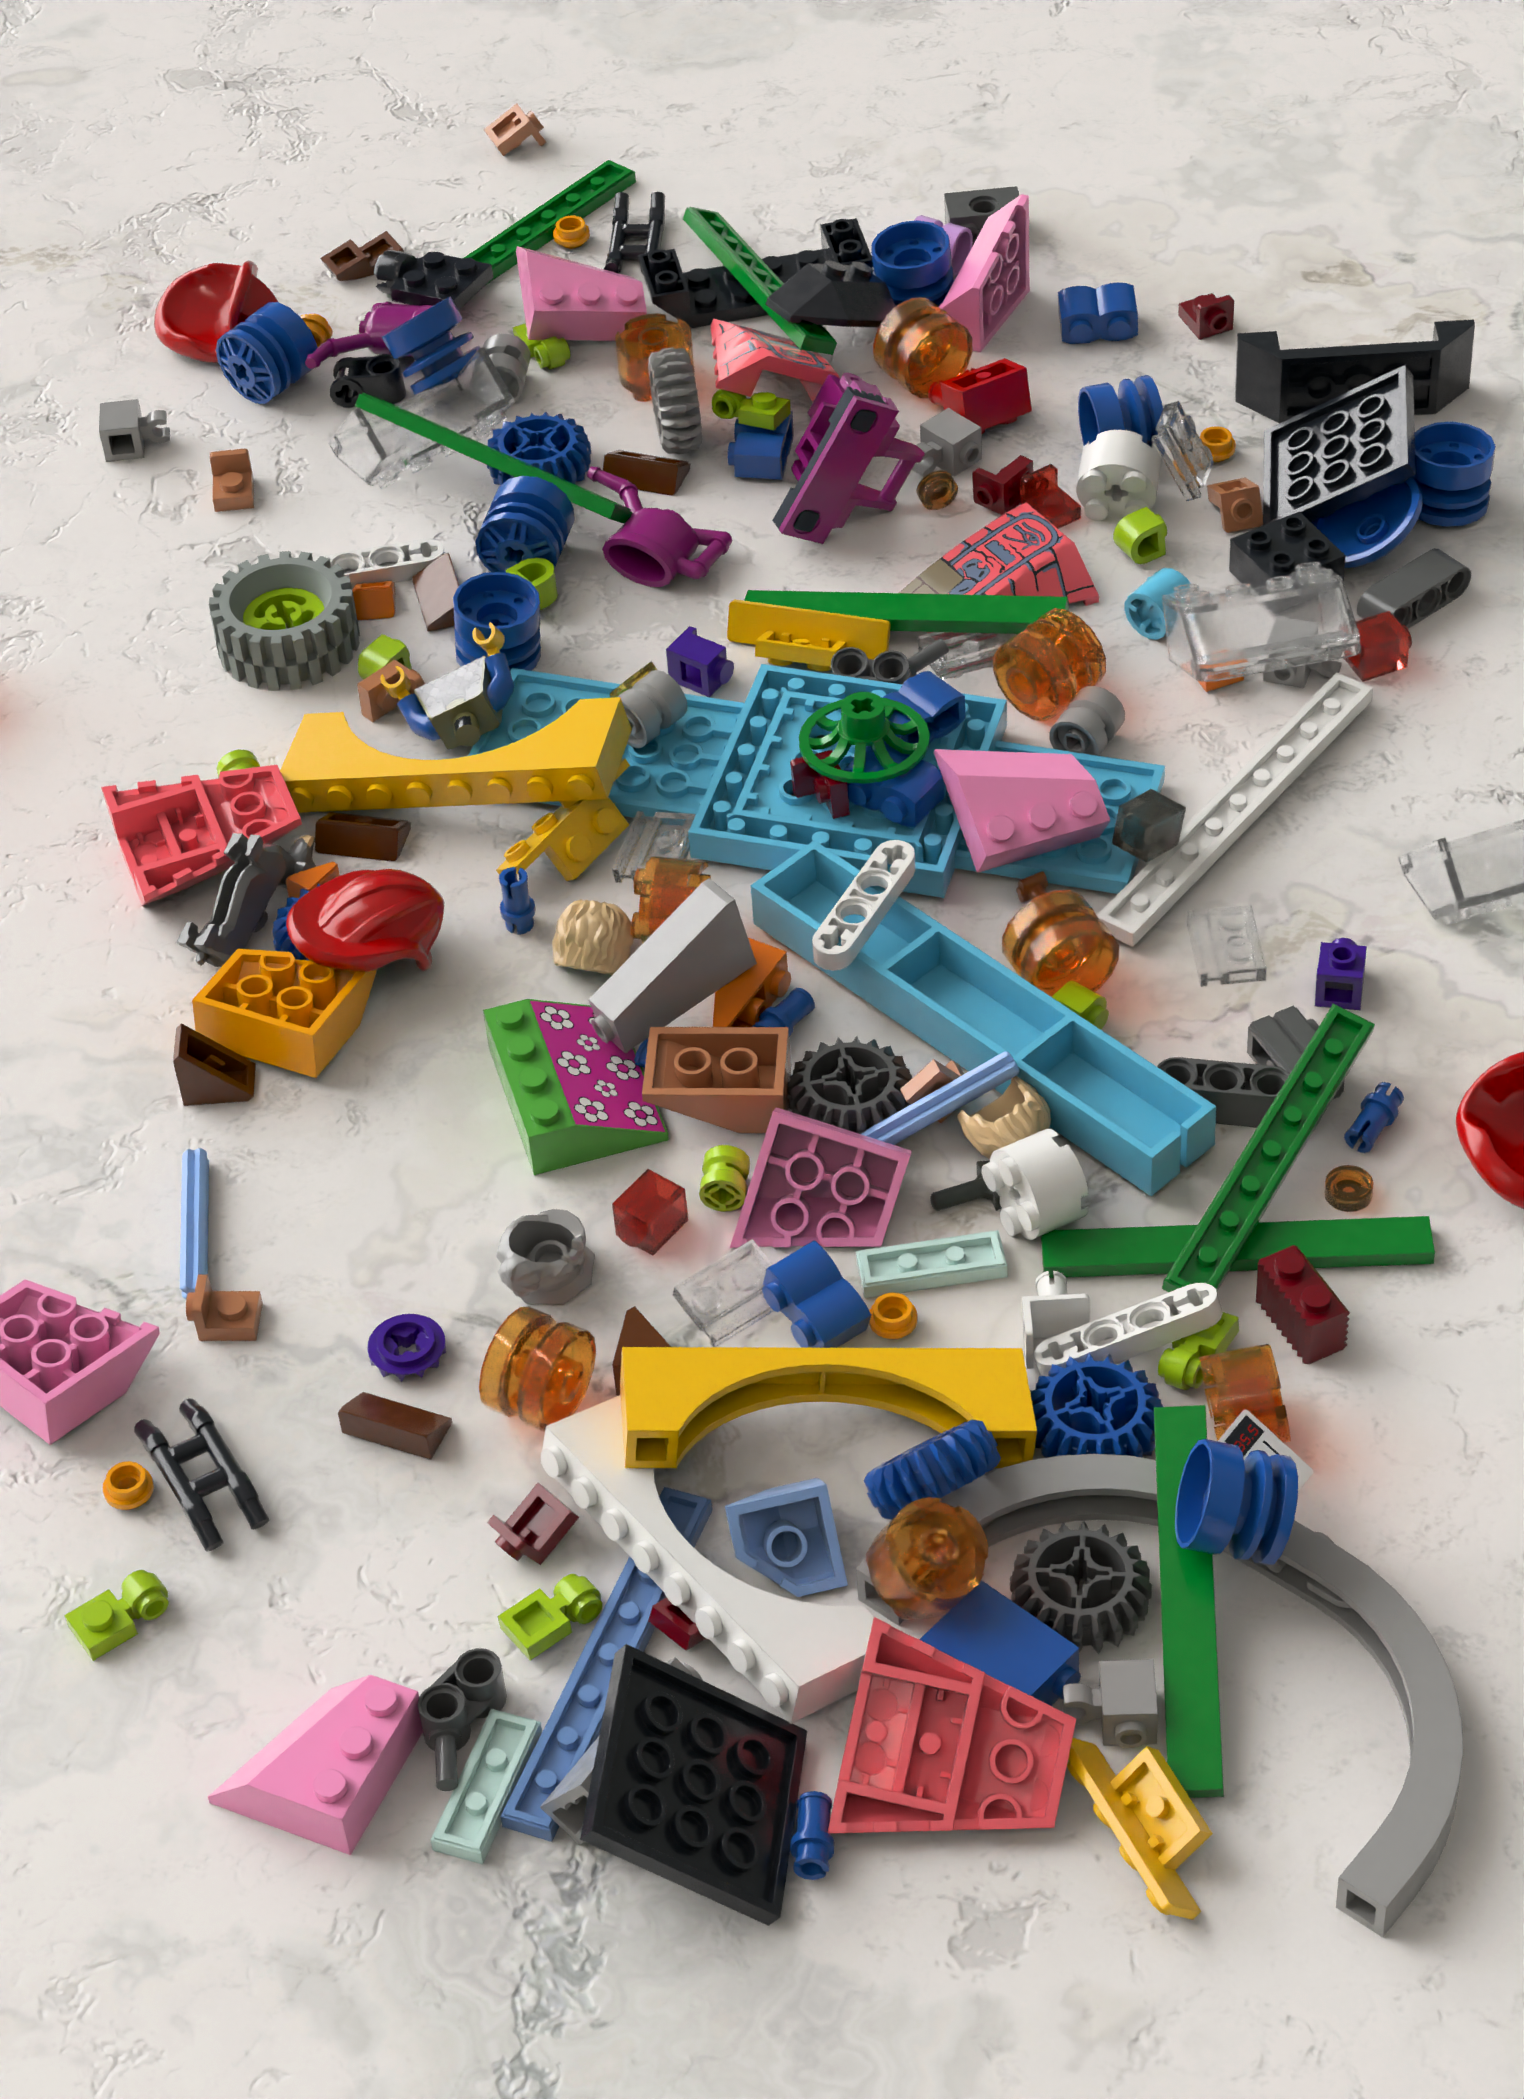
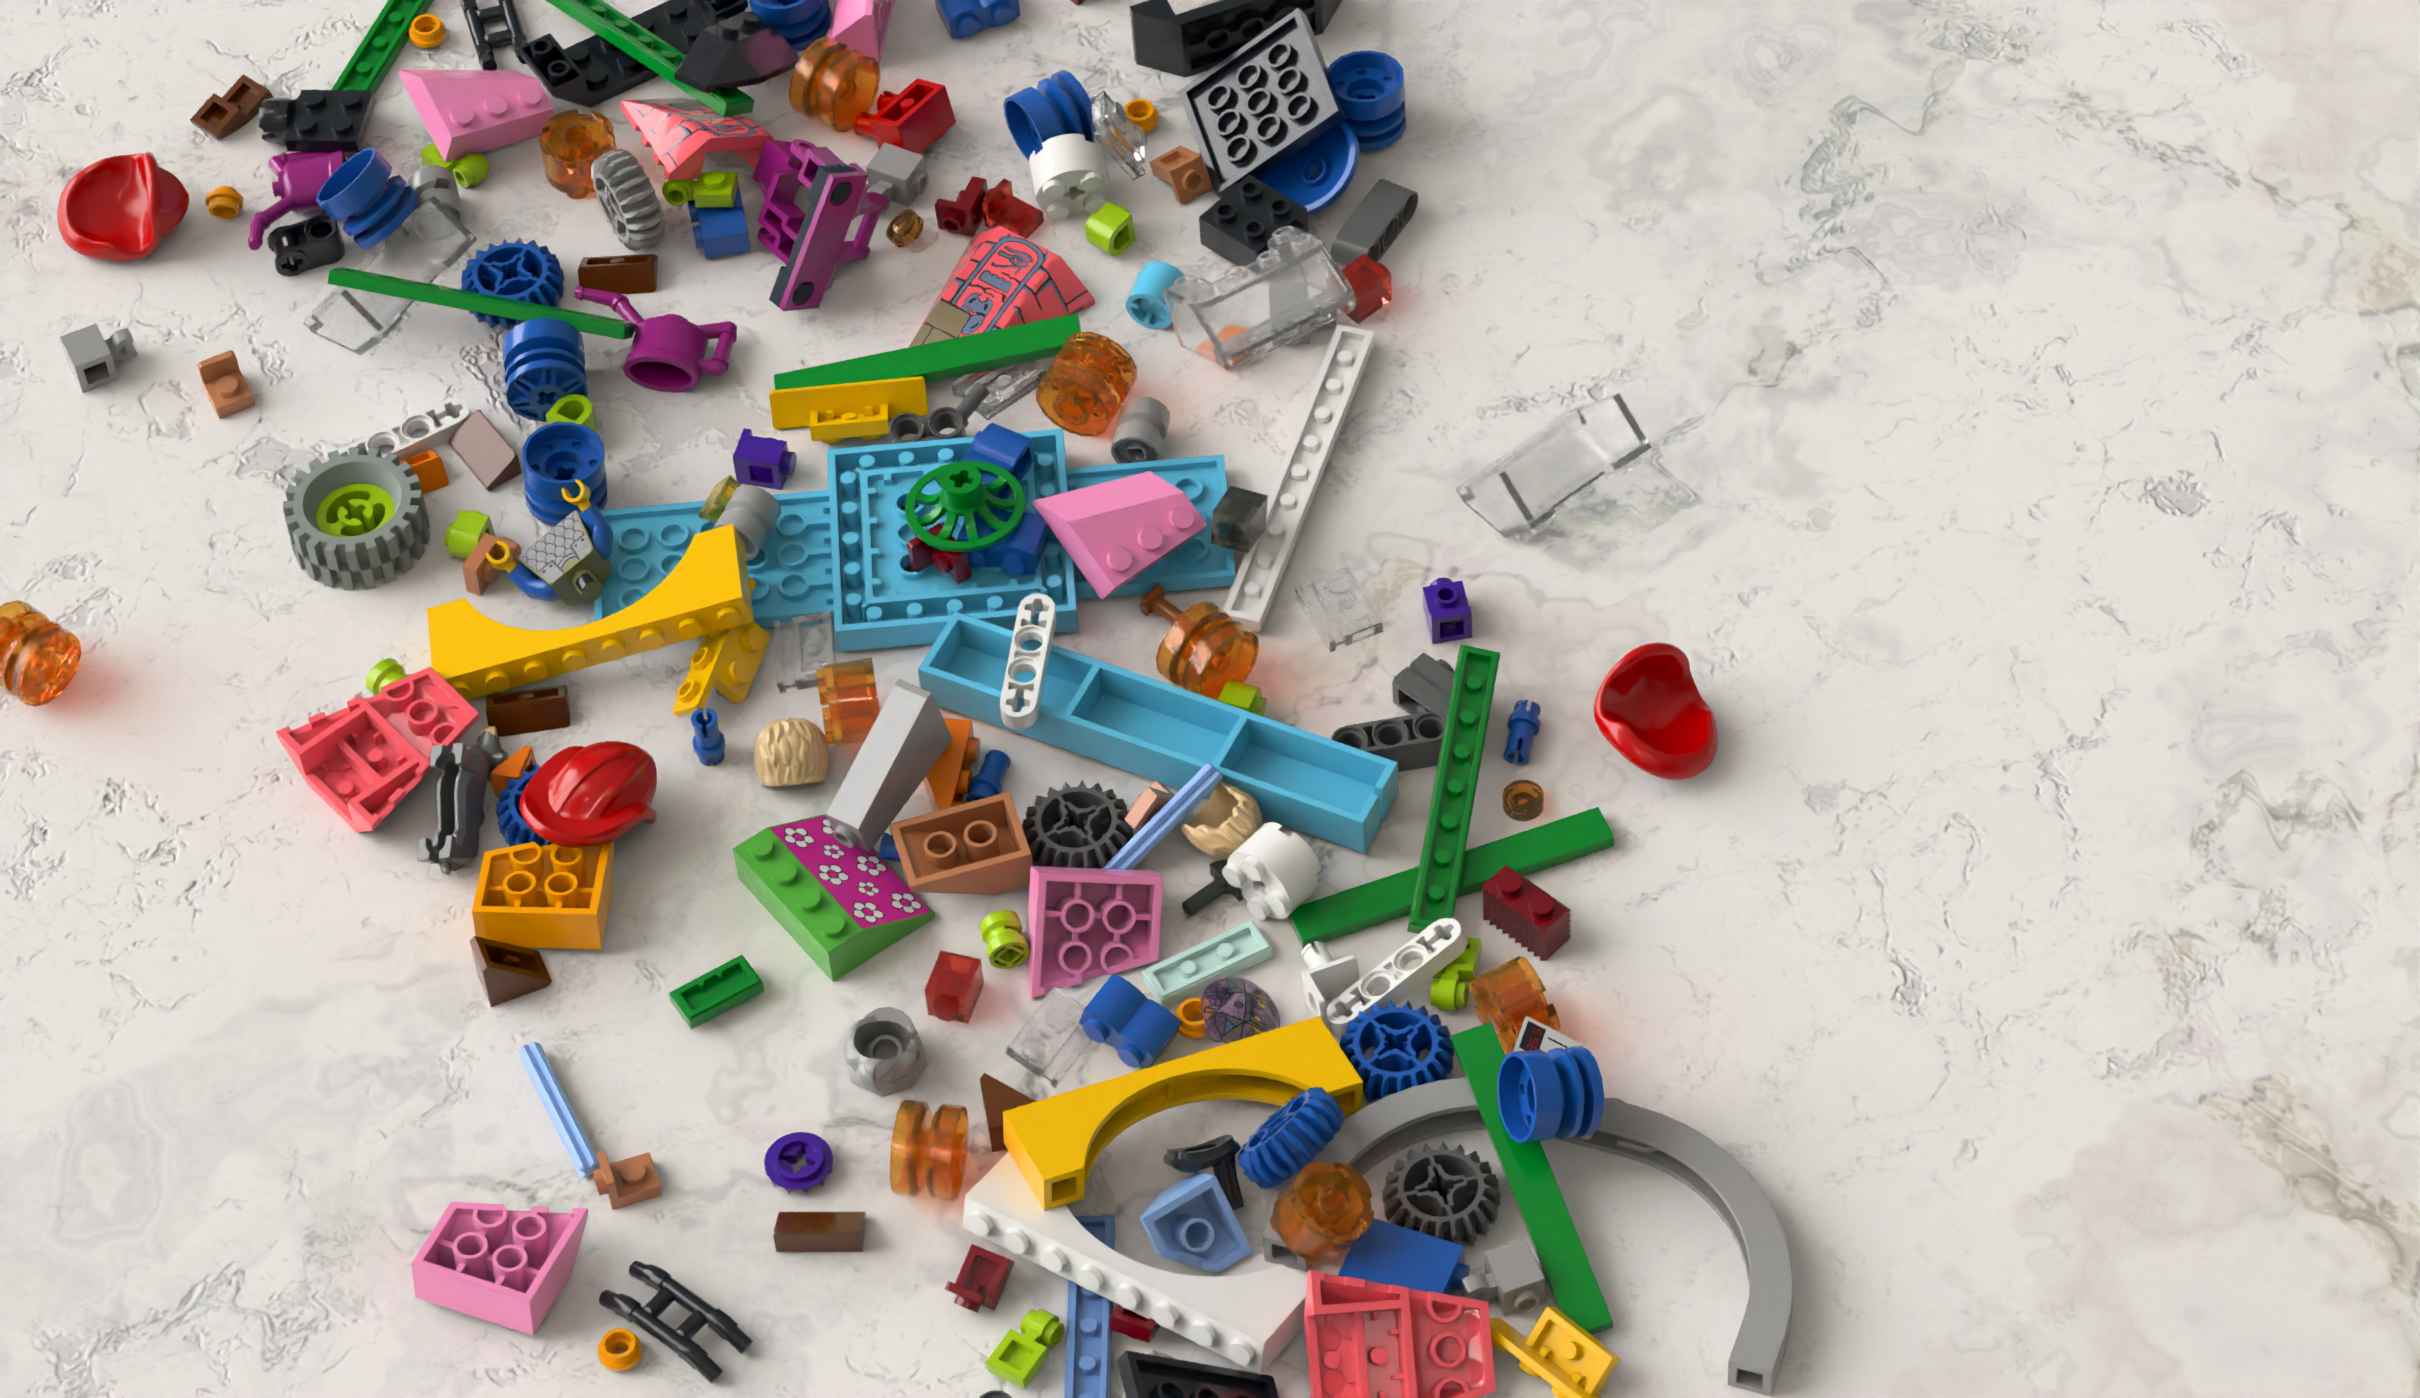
camera: 20 degrees left, 5 degrees up
(266, 352) = (199, 242): blue wheel -> none
(407, 1150) = (716, 991): none -> green plate
(848, 1470) = (1216, 1153): none -> black piece
(937, 1316) = (1237, 1010): none -> dish

